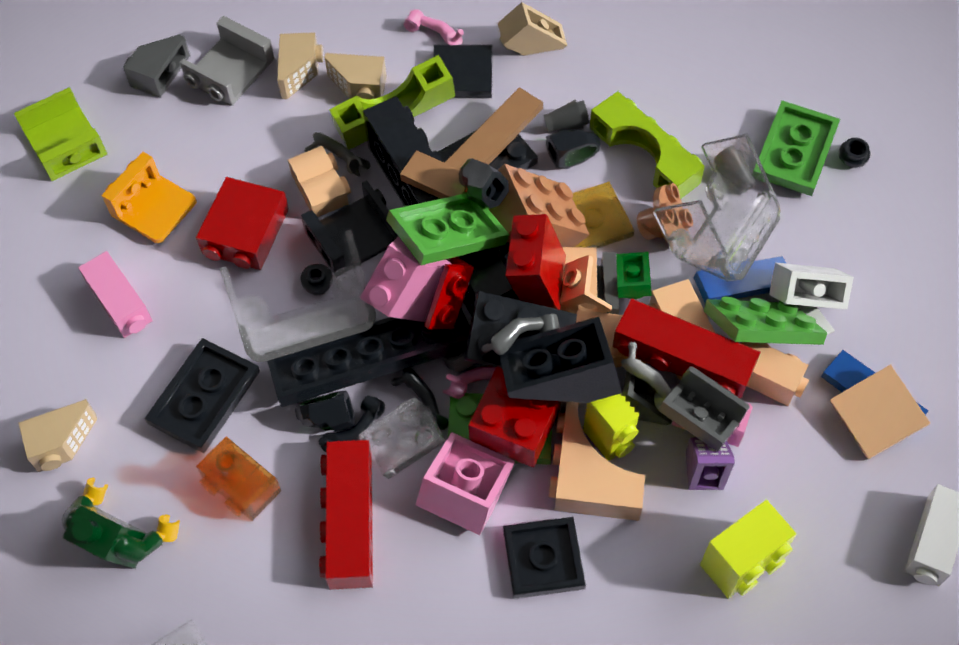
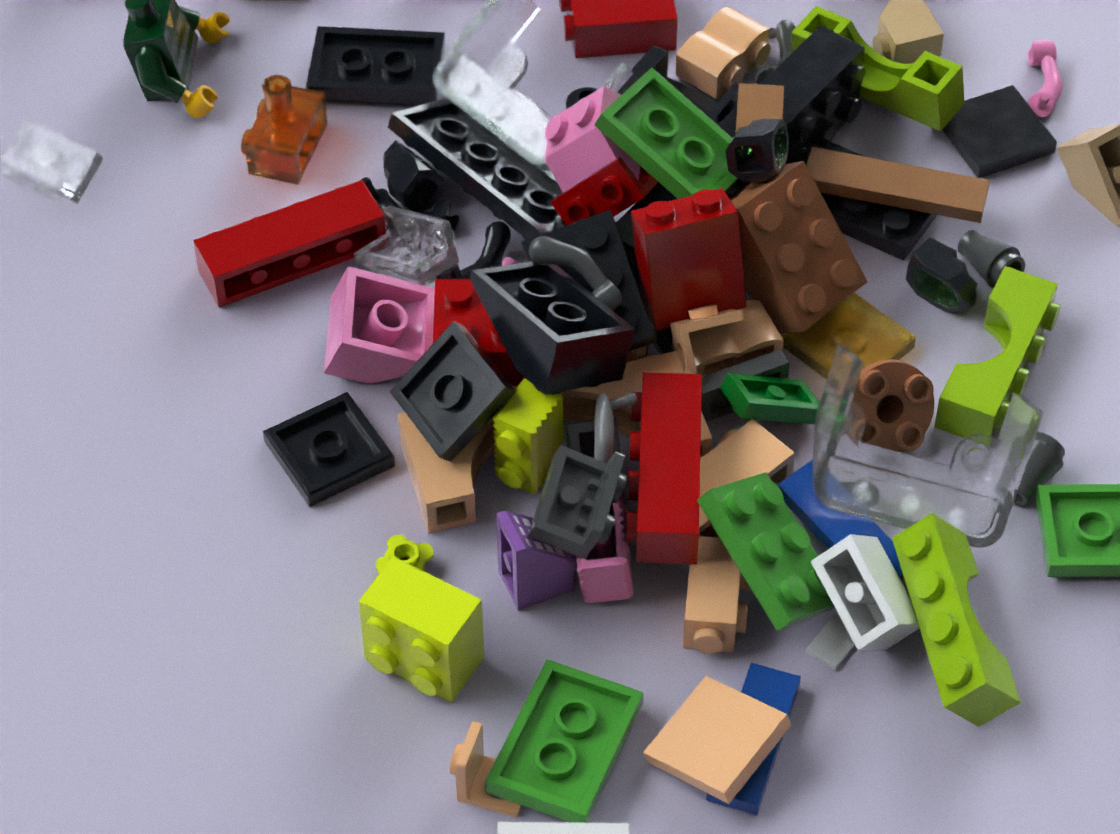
camera: 65 degrees right, 10 degrees down
(575, 452) = (452, 391): none -> black plate
(664, 552) = (400, 547): none -> neon yellow plate
(841, 253) = (965, 663): none -> lime arch
(849, 499) = (564, 743): none -> bright green plate
(853, 560) = (471, 771): none -> light nougat bracket

